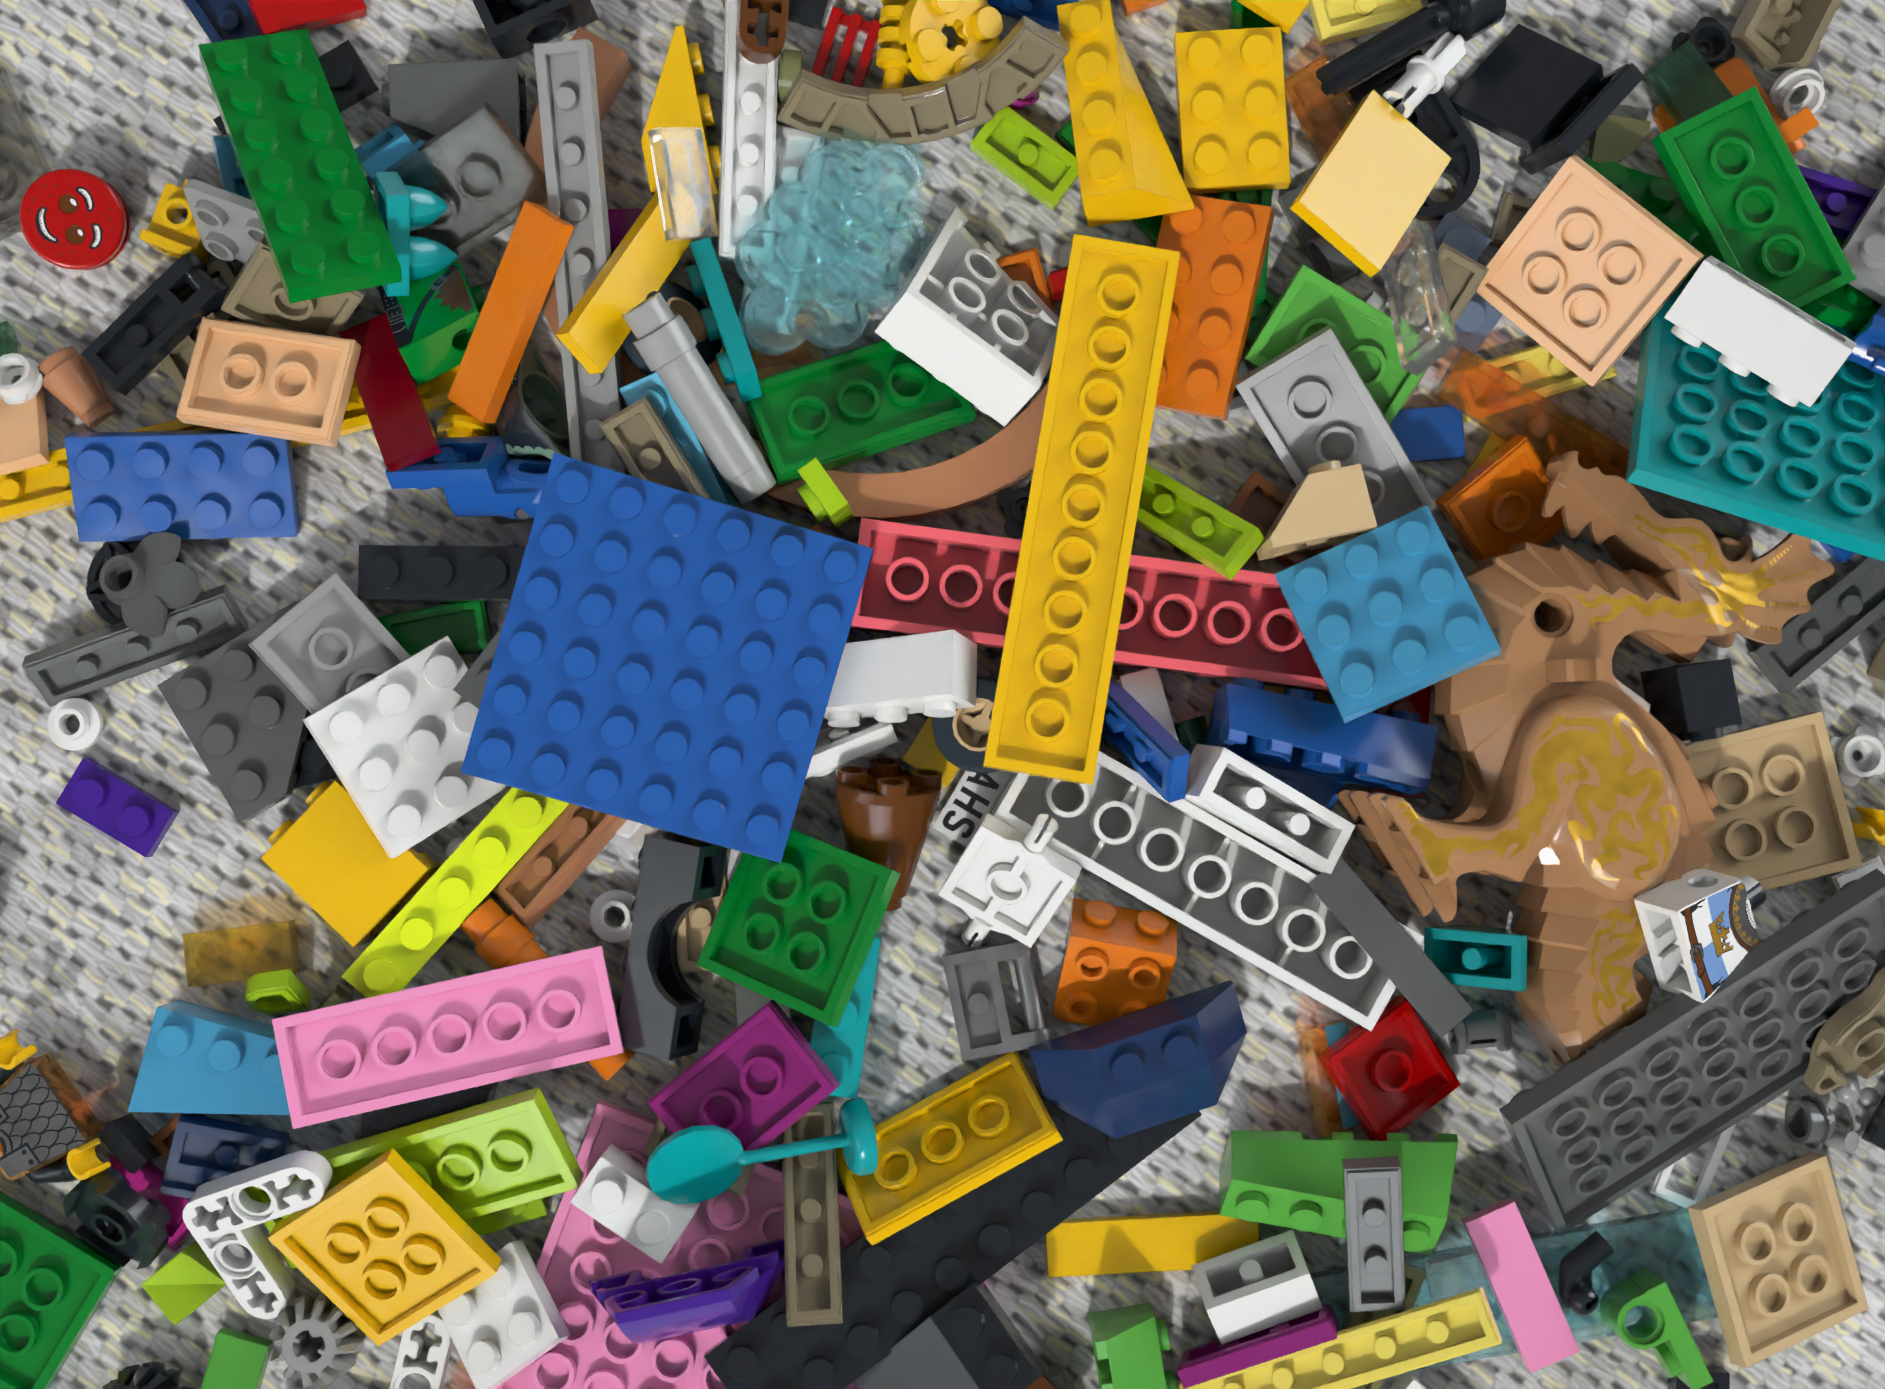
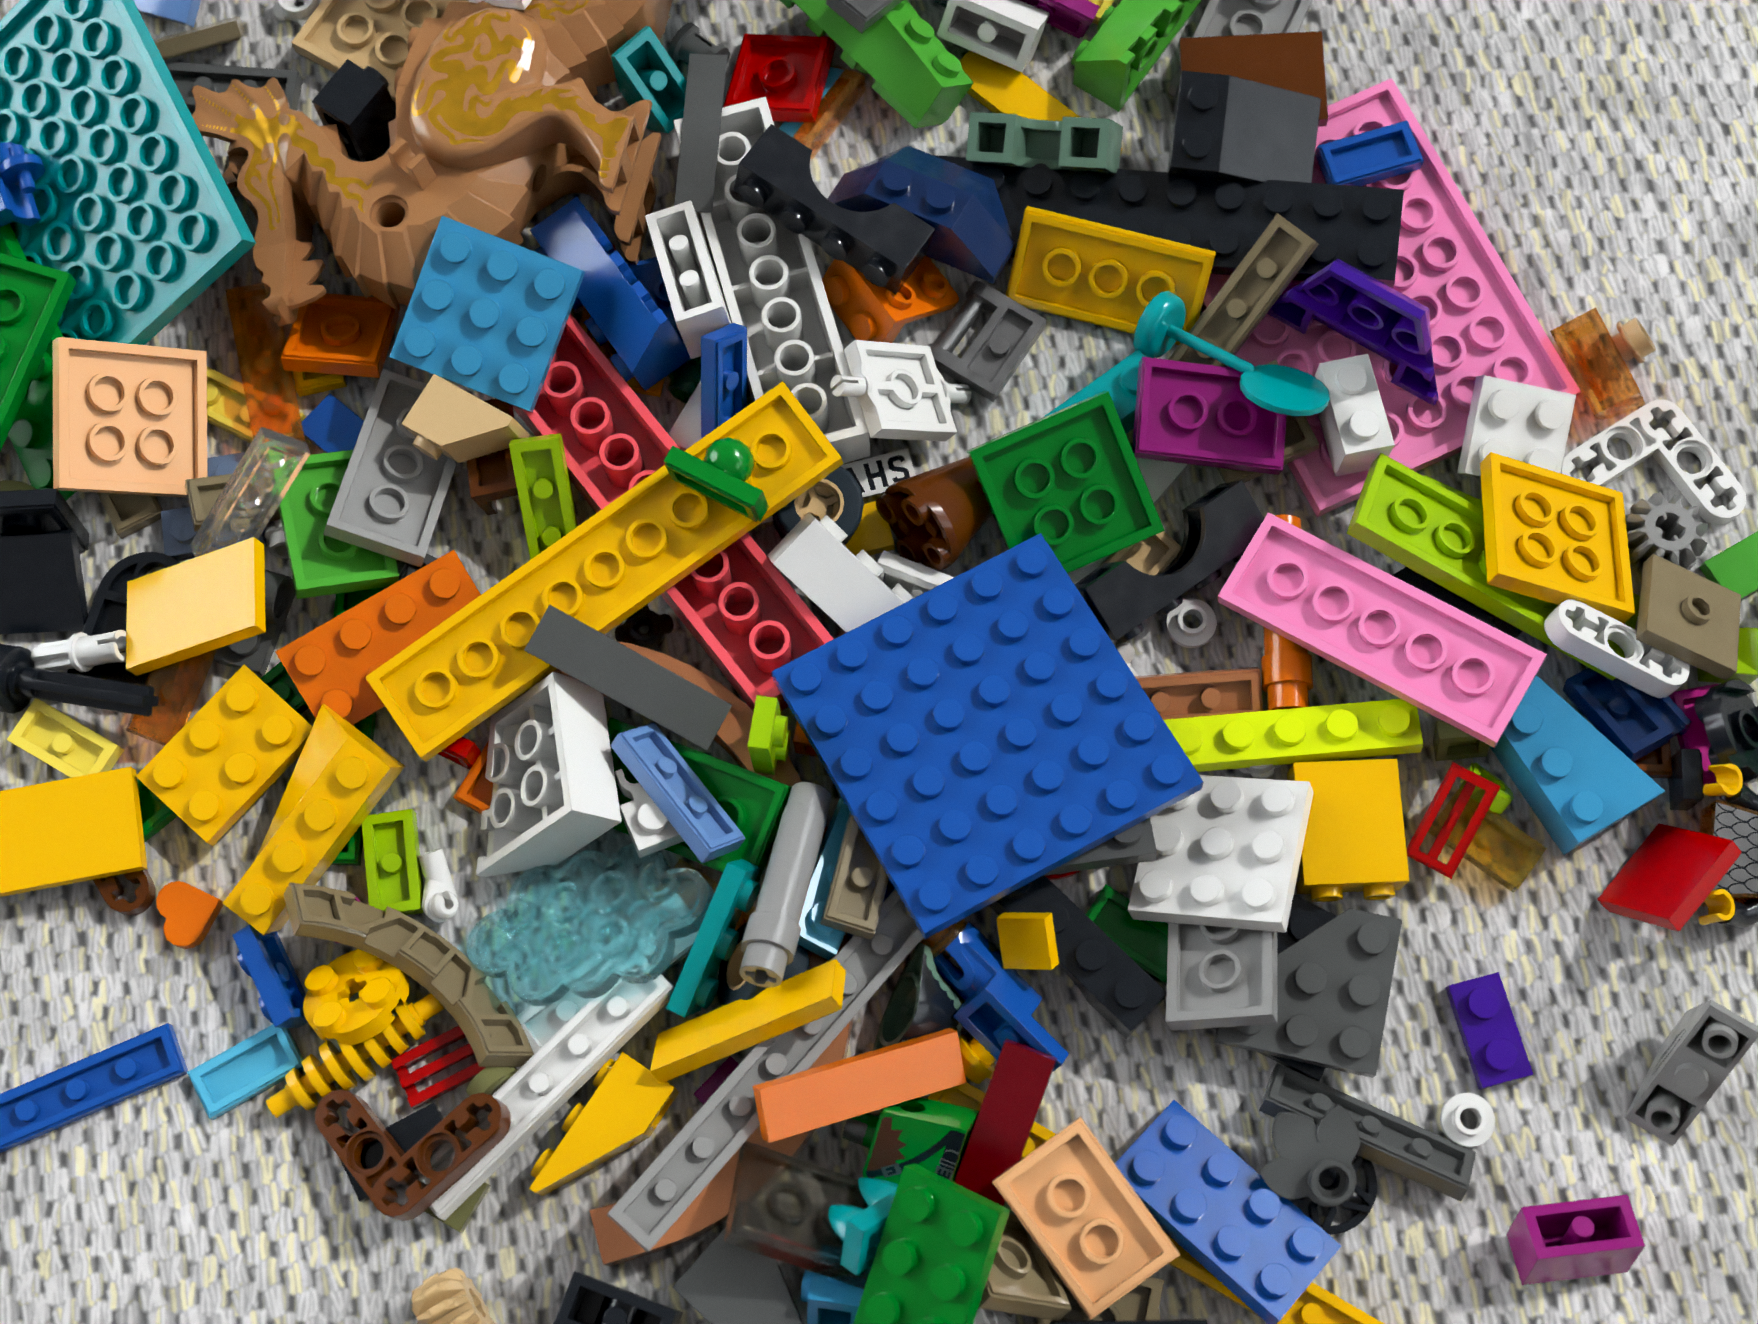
camera: 130 degrees left, 15 degrees down
(72, 1047) = (1669, 876): none -> red tile
(229, 1279) = (1689, 617): none -> dark tan plate
(293, 938) = (1472, 780): none -> red tile
(492, 536) = (1027, 940): none -> yellow tile
(683, 183) = (646, 1059): clear tile -> none
(856, 394) = (678, 792): none -> medium blue tile
(859, 361) = (644, 820): none -> white plate
(975, 173) = (439, 893): none -> white arm
(980, 440) = (628, 677): none -> dark grey tile
(1059, 663) = (720, 476): none -> green tile
(1129, 1198) = (1061, 145): none -> sand green arch
(1272, 958) = (878, 243): none -> black arch
(1758, 333) = (75, 262): white brick -> none

